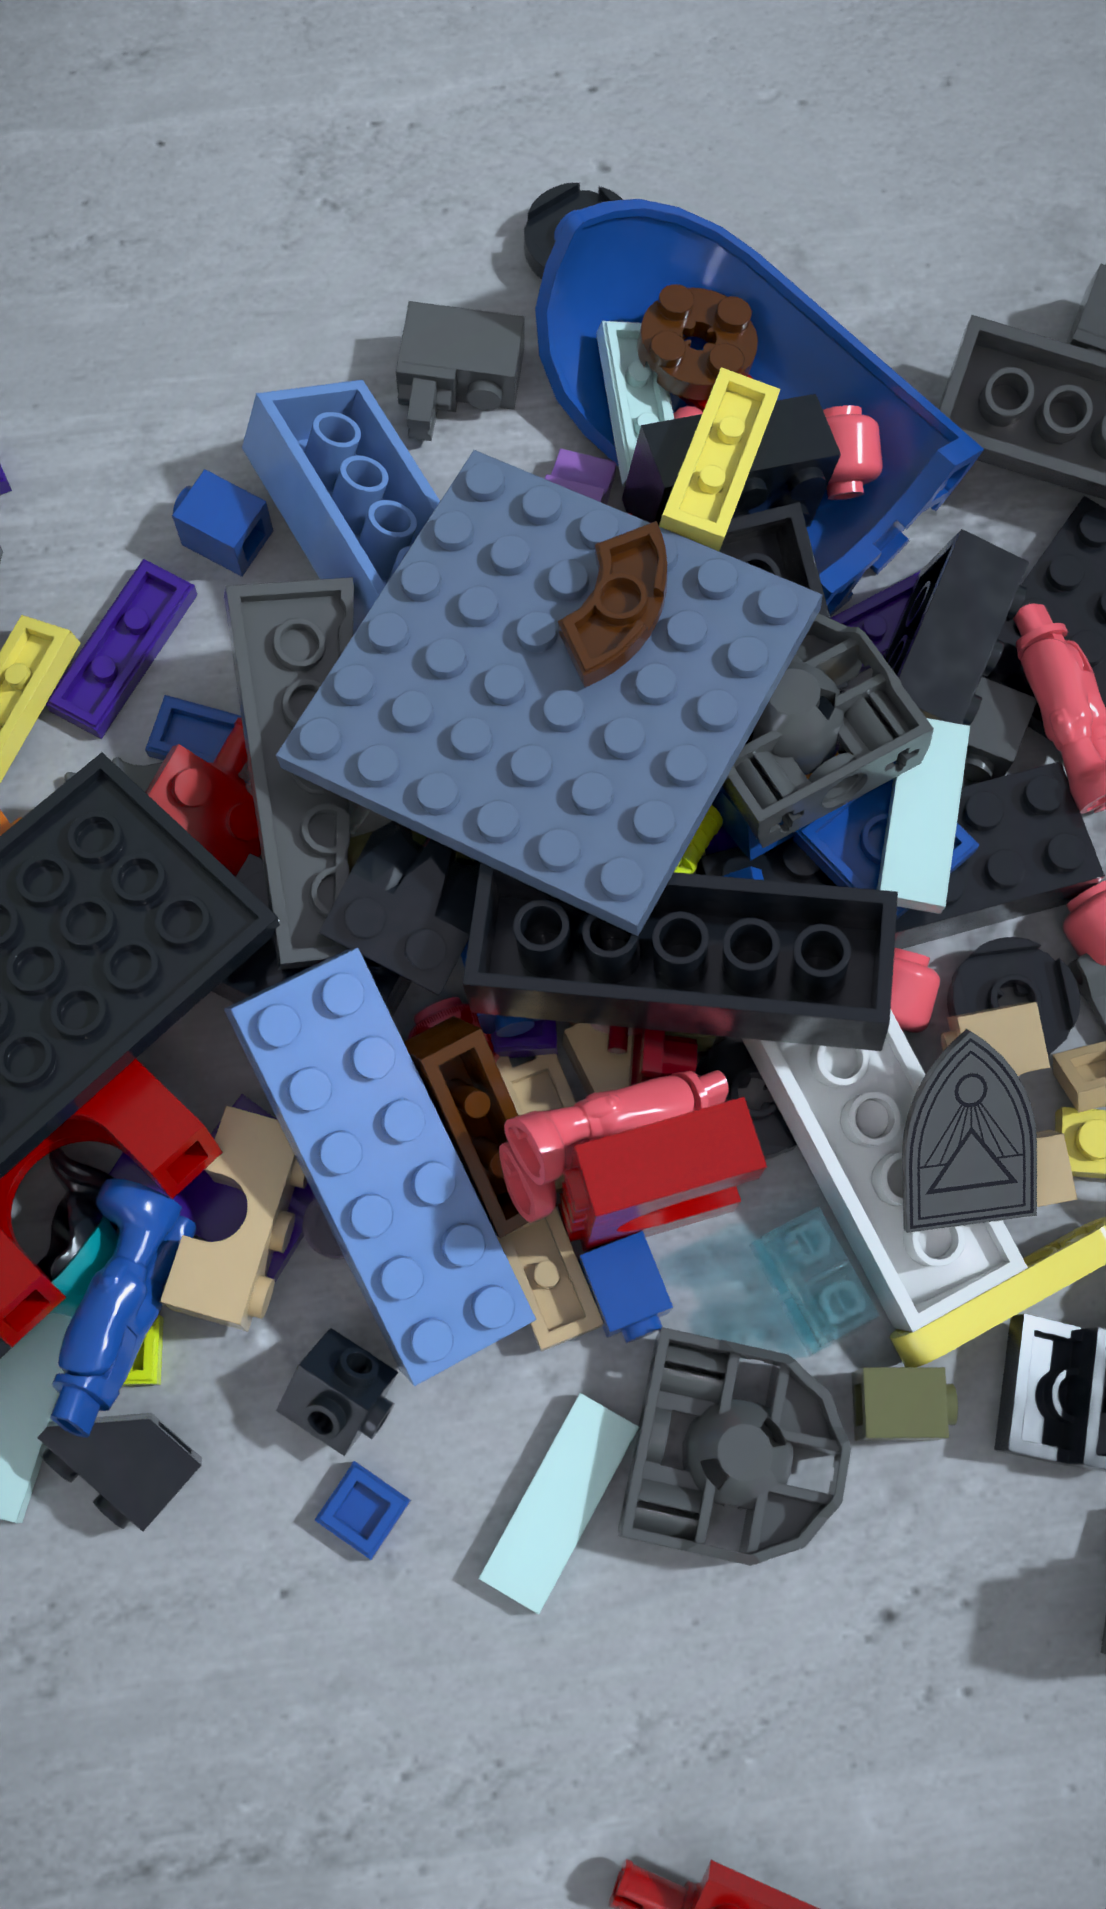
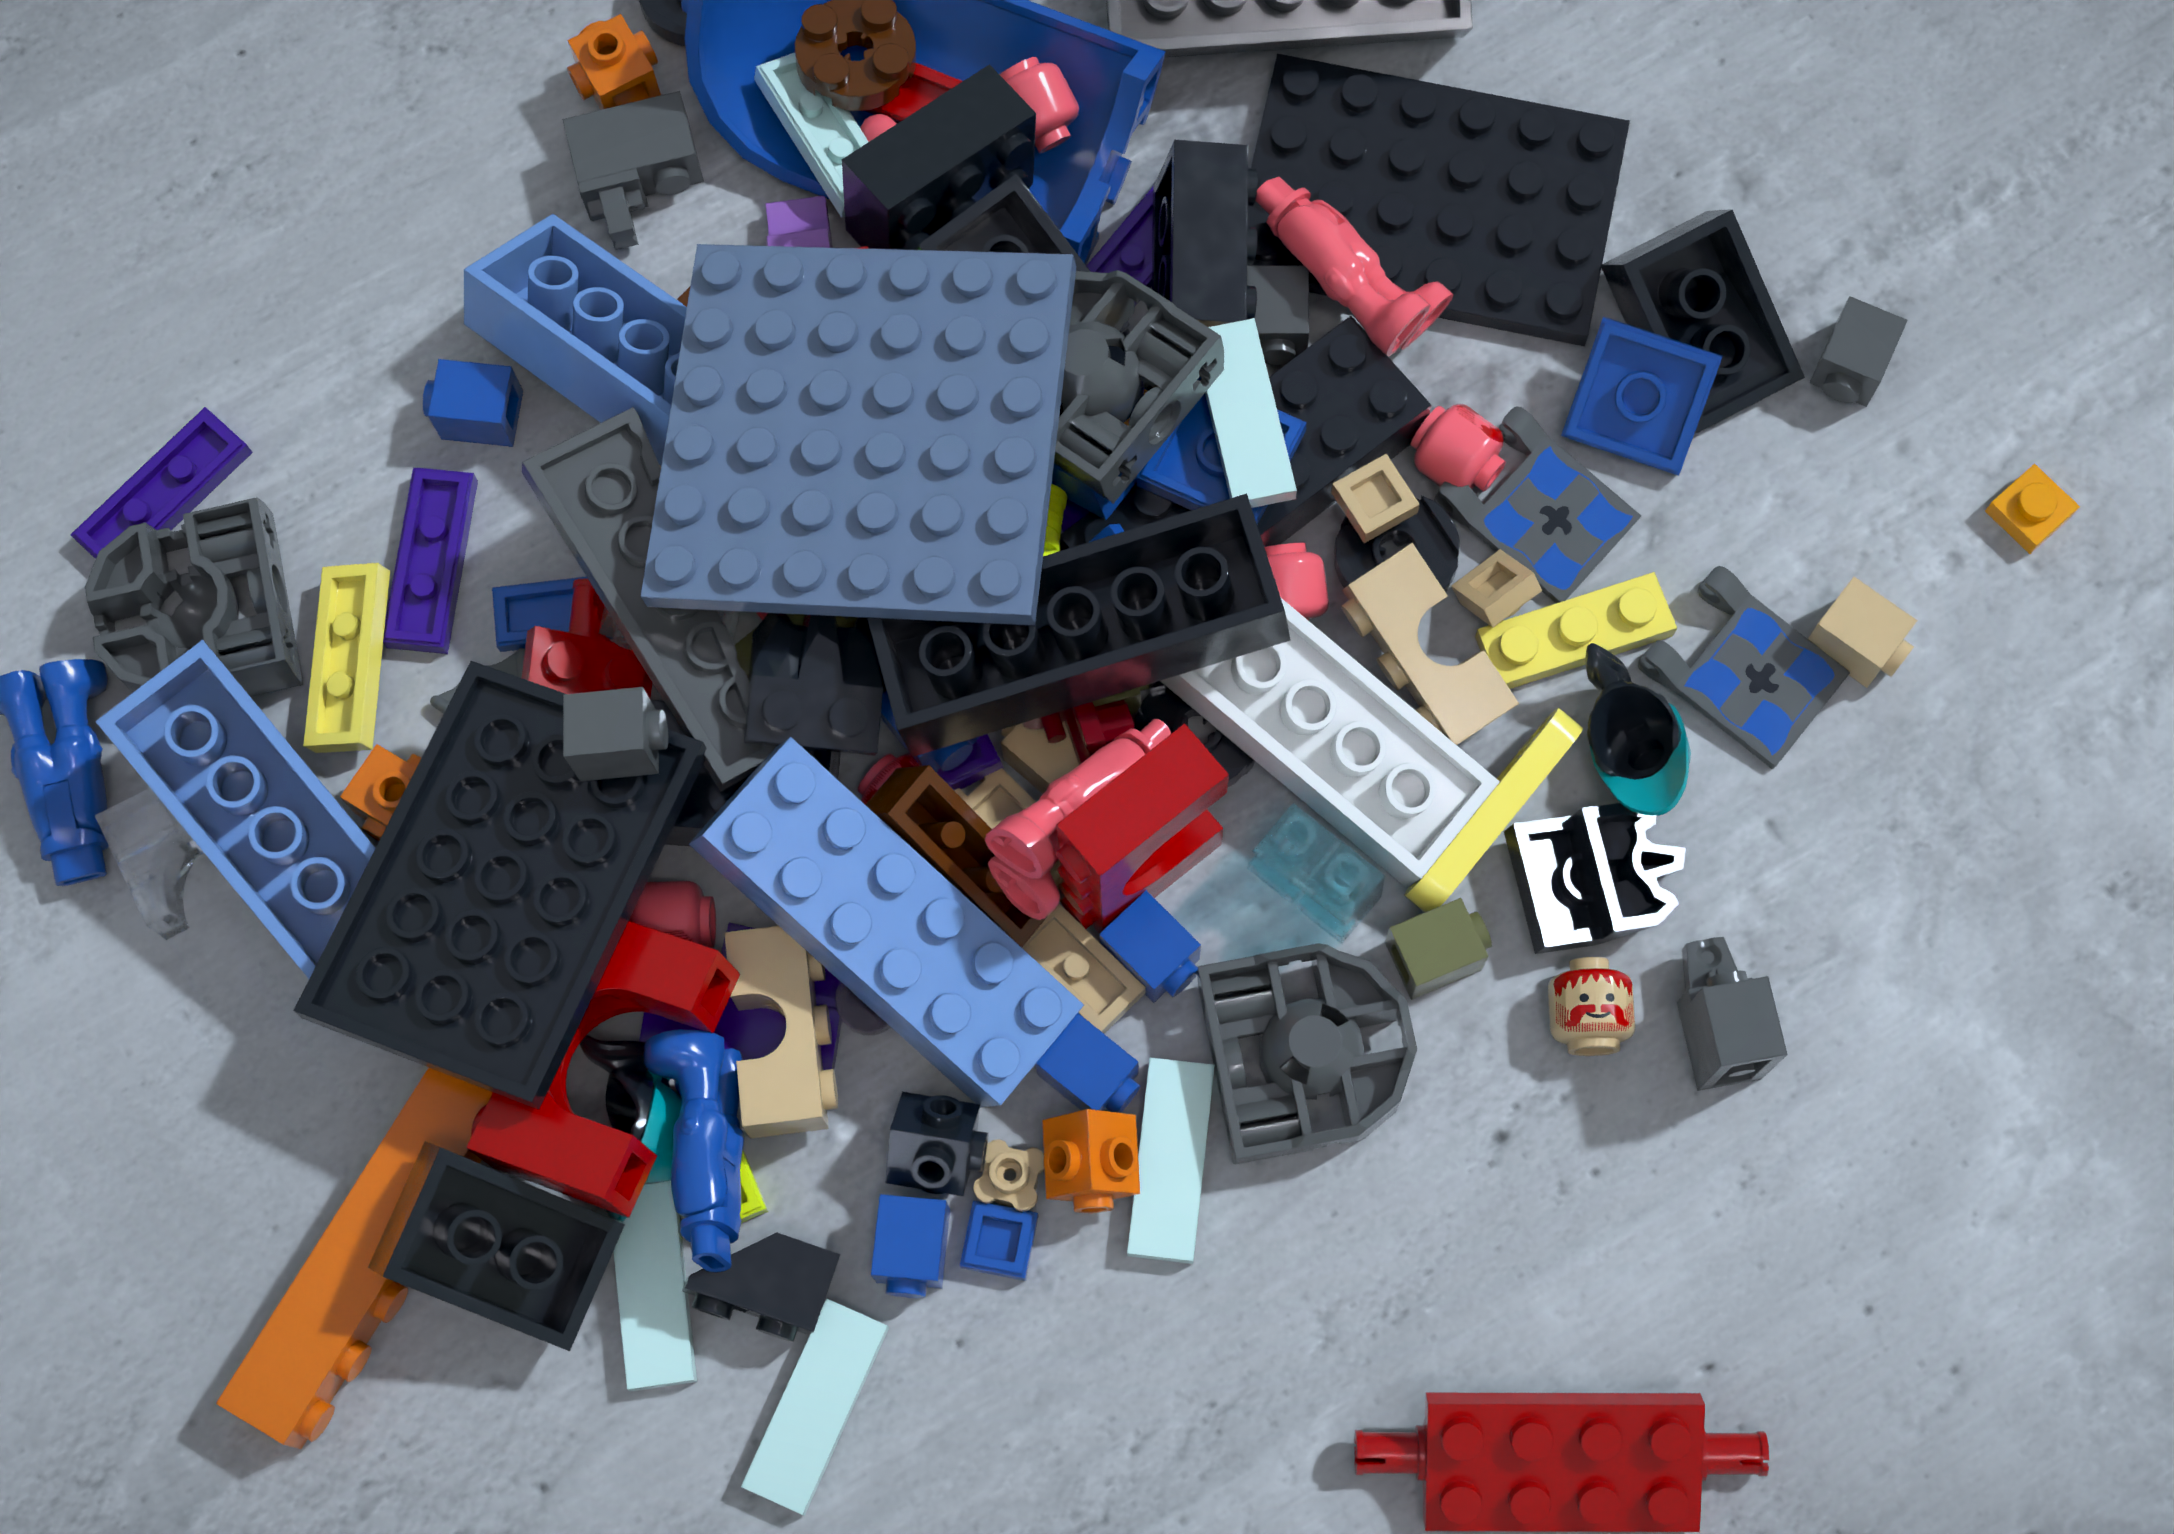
camera: 15 degrees left, 0 degrees up
(118, 1601) = (815, 1407): none -> light aqua tile
(192, 1068) = (677, 910): none -> coral head
(193, 874) = (613, 734): none -> dark grey brick
(274, 1481) = (910, 1244): none -> blue brick
(399, 1471) = (1016, 1193): none -> tan plate
(476, 270) = (613, 64): none -> orange brick
(481, 1472) = (1091, 1159): none -> orange brick
(518, 1382) = (1089, 1068): none -> blue brick
(621, 607) = (897, 338): reddish brown tile -> none
(719, 459) = (928, 164): light yellow plate -> none
(969, 1142) = (1401, 690): dark grey shield -> none
(1014, 943) = (1375, 498): none -> tan plate
(1029, 1528) = (1591, 1007): none -> tan head

